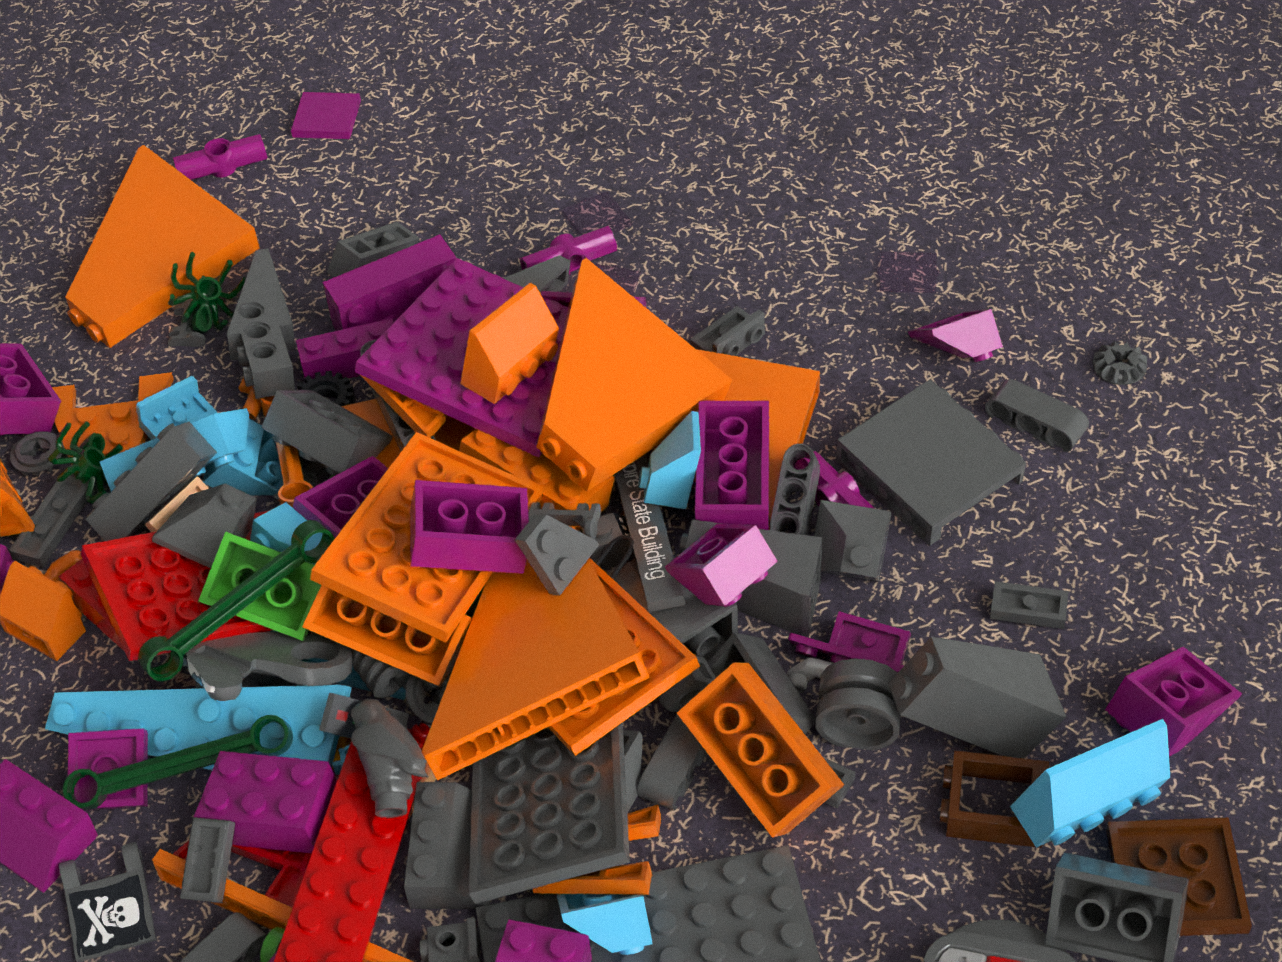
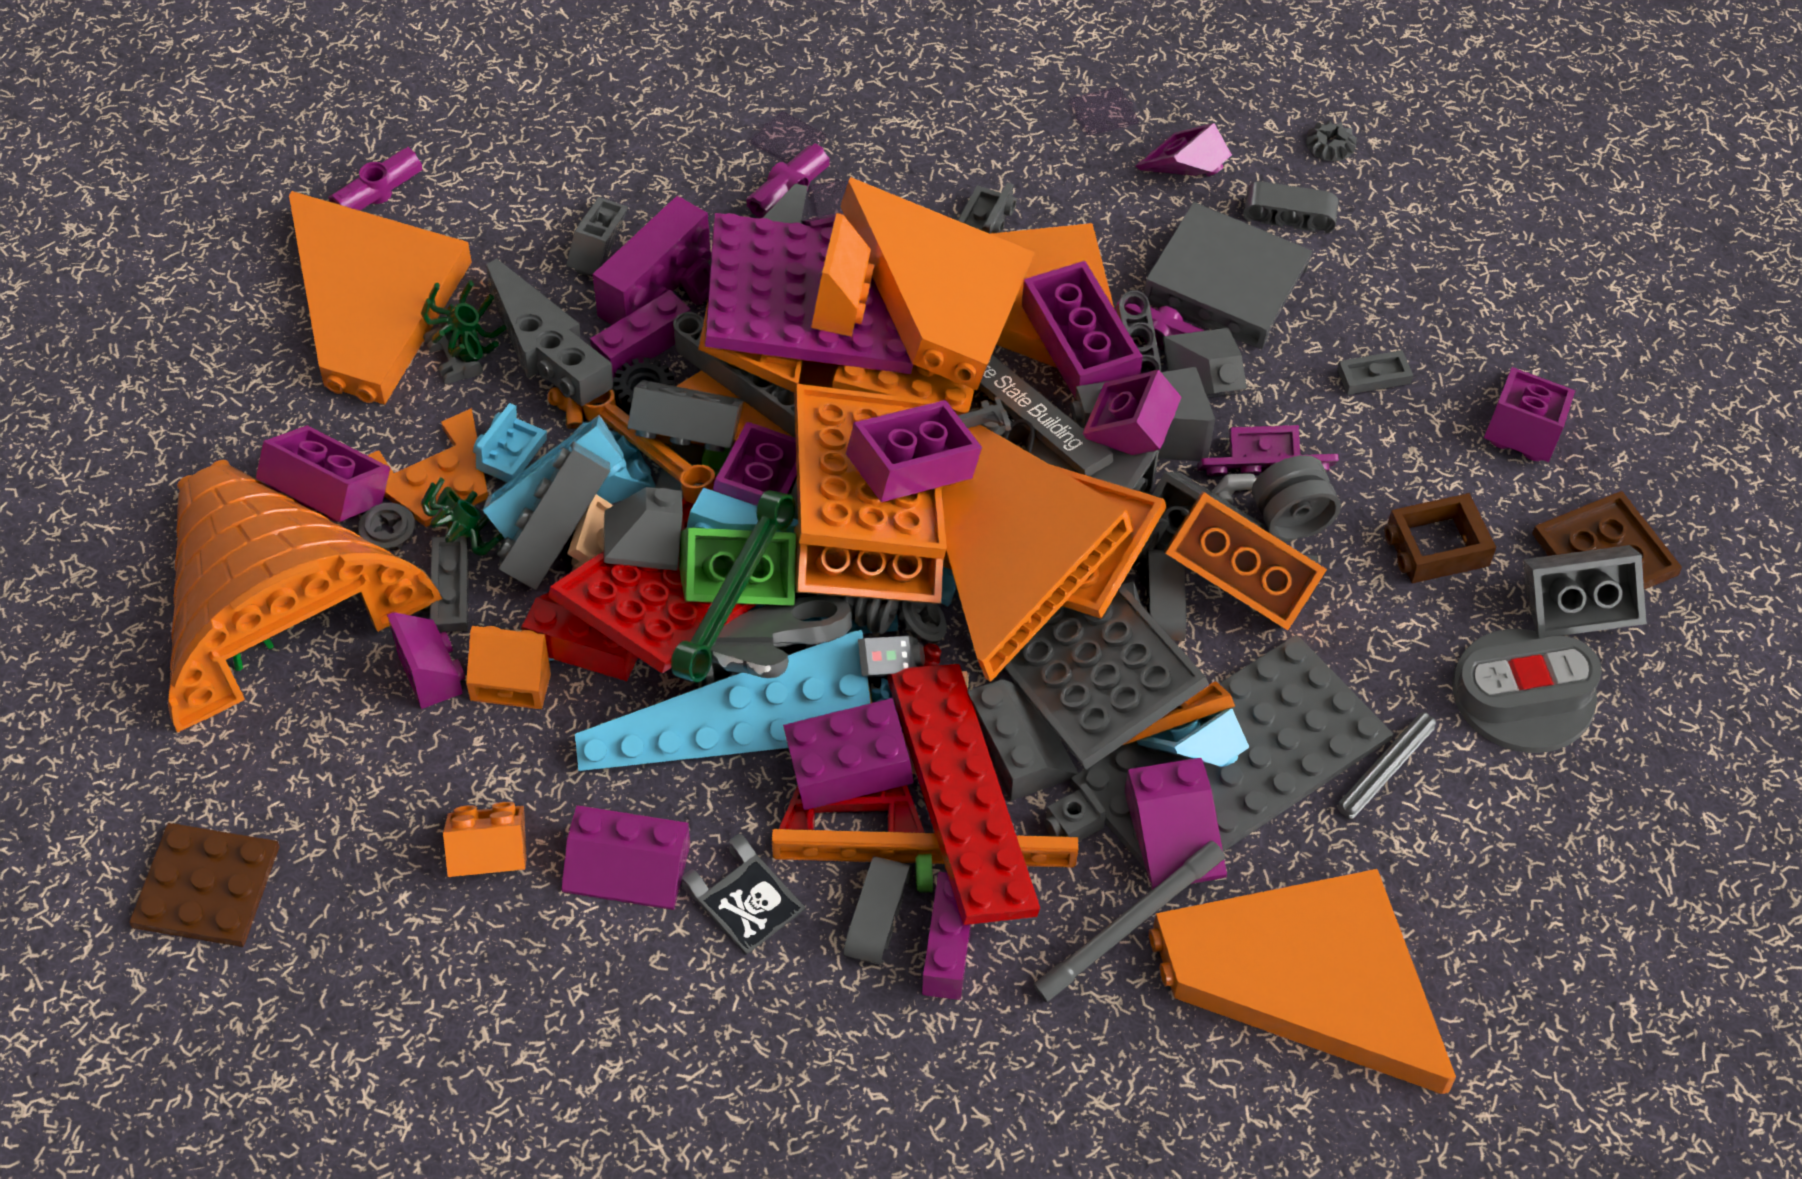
camera: 30 degrees left, 5 degrees up
(62, 564) = (497, 614): orange arm -> none
(104, 752) = (671, 780): magenta plate -> none
(175, 763) = (743, 749): dark green piece -> none
(207, 860) = (831, 819): dark grey plate -> none
(326, 115) = (452, 110): magenta tile -> none
(388, 757) = (945, 673): dark grey animal -> none
(554, 551) = (1000, 448): dark grey wing -> none
(673, 466) = (1031, 342): medium azure slope -> none
(979, 695) = (1397, 456): dark grey slope -> none
(1095, 785) = (1521, 500): medium azure slope -> none

